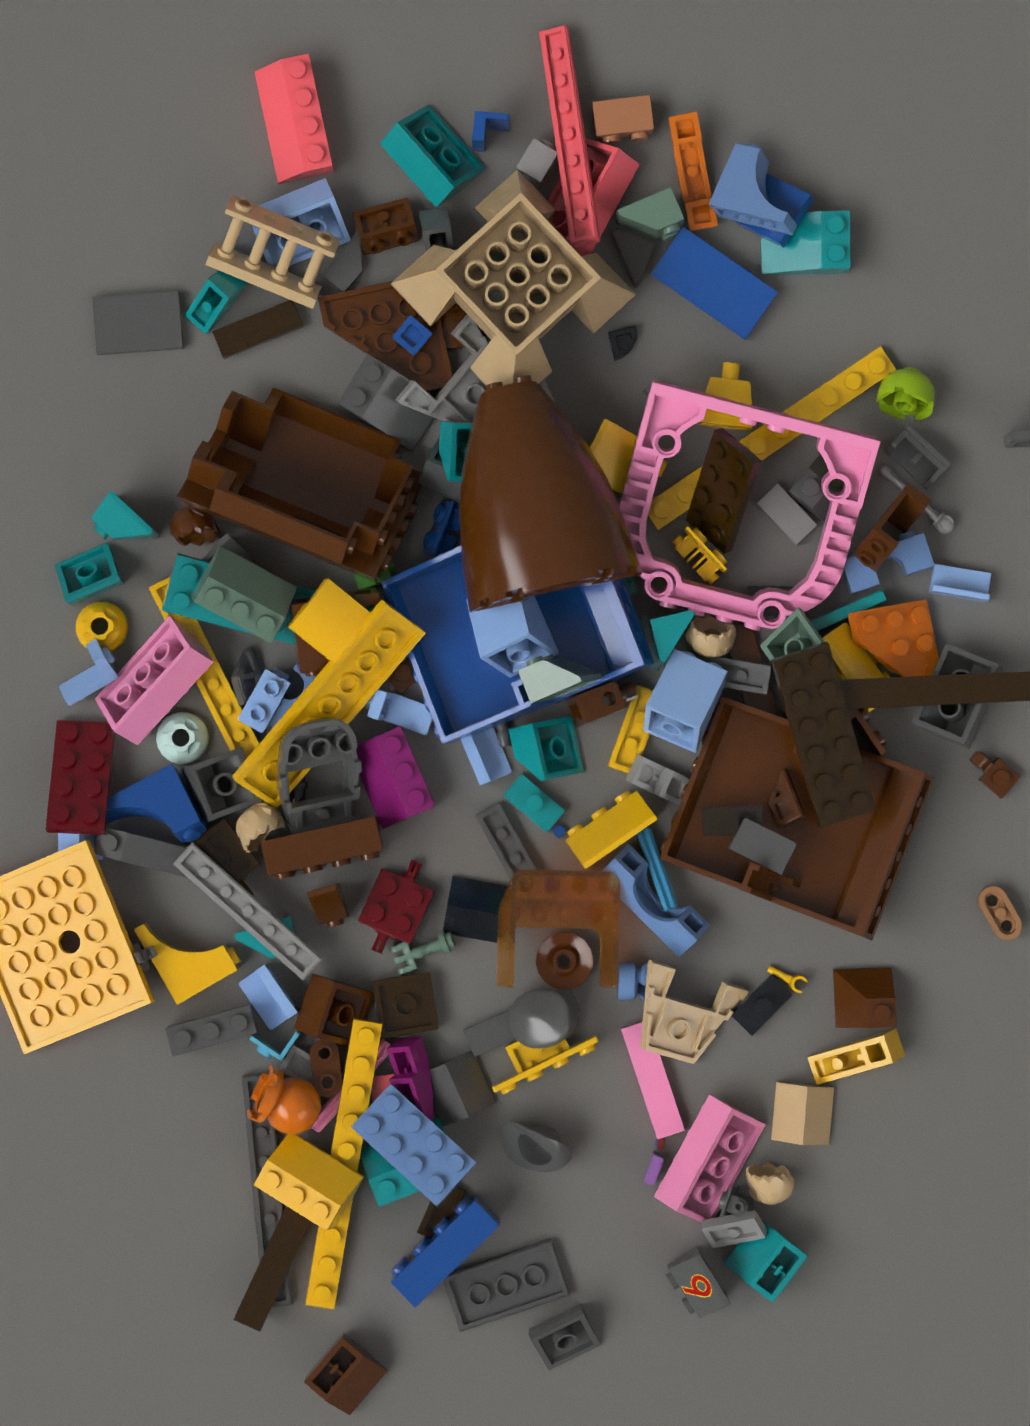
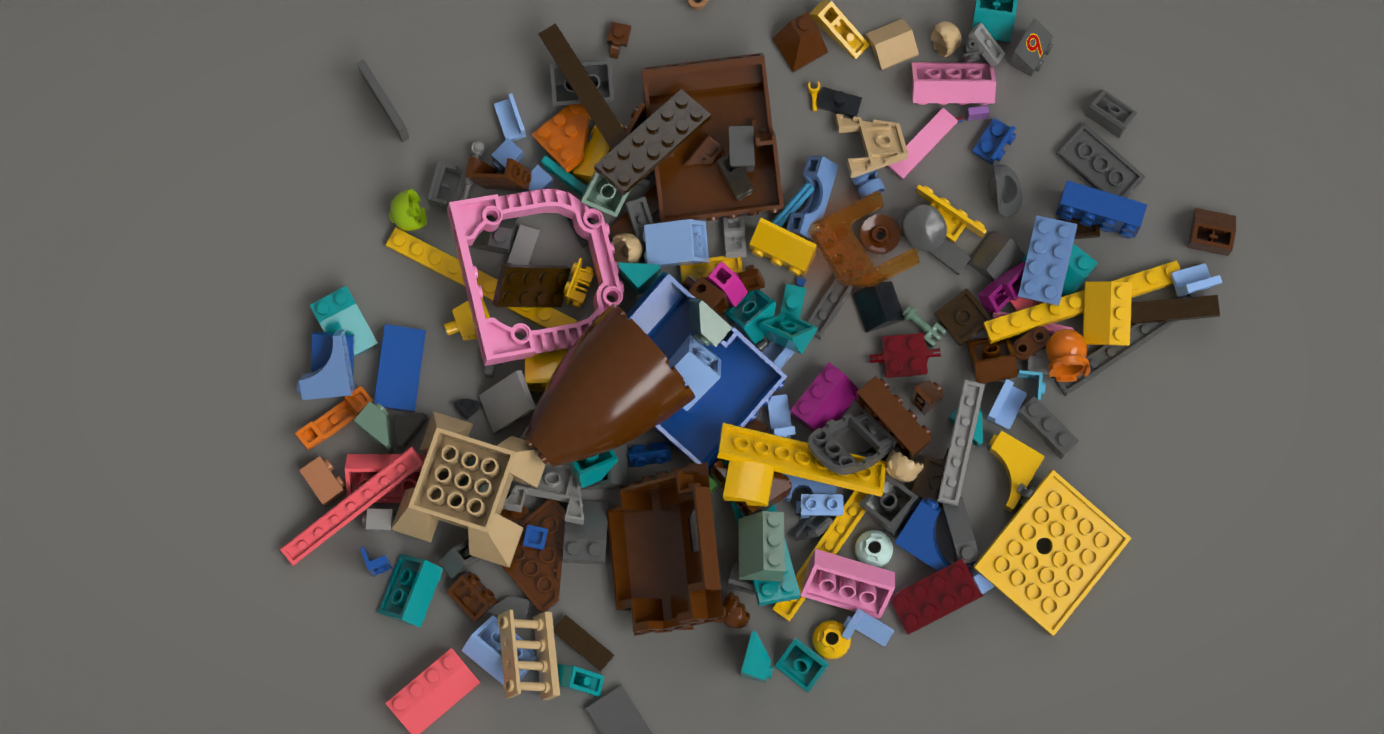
camera: 120 degrees left, 10 degrees down
(295, 1315) = (1193, 280): none -> light blue panel
(499, 779) = (788, 331): none -> teal slope
(593, 770) = (752, 278): none -> reddish brown tile
(597, 388) = (507, 401): none -> light grey tile
(601, 734) = (728, 282): none -> dark pink slope
(607, 1170) = (993, 141): none -> blue bracket

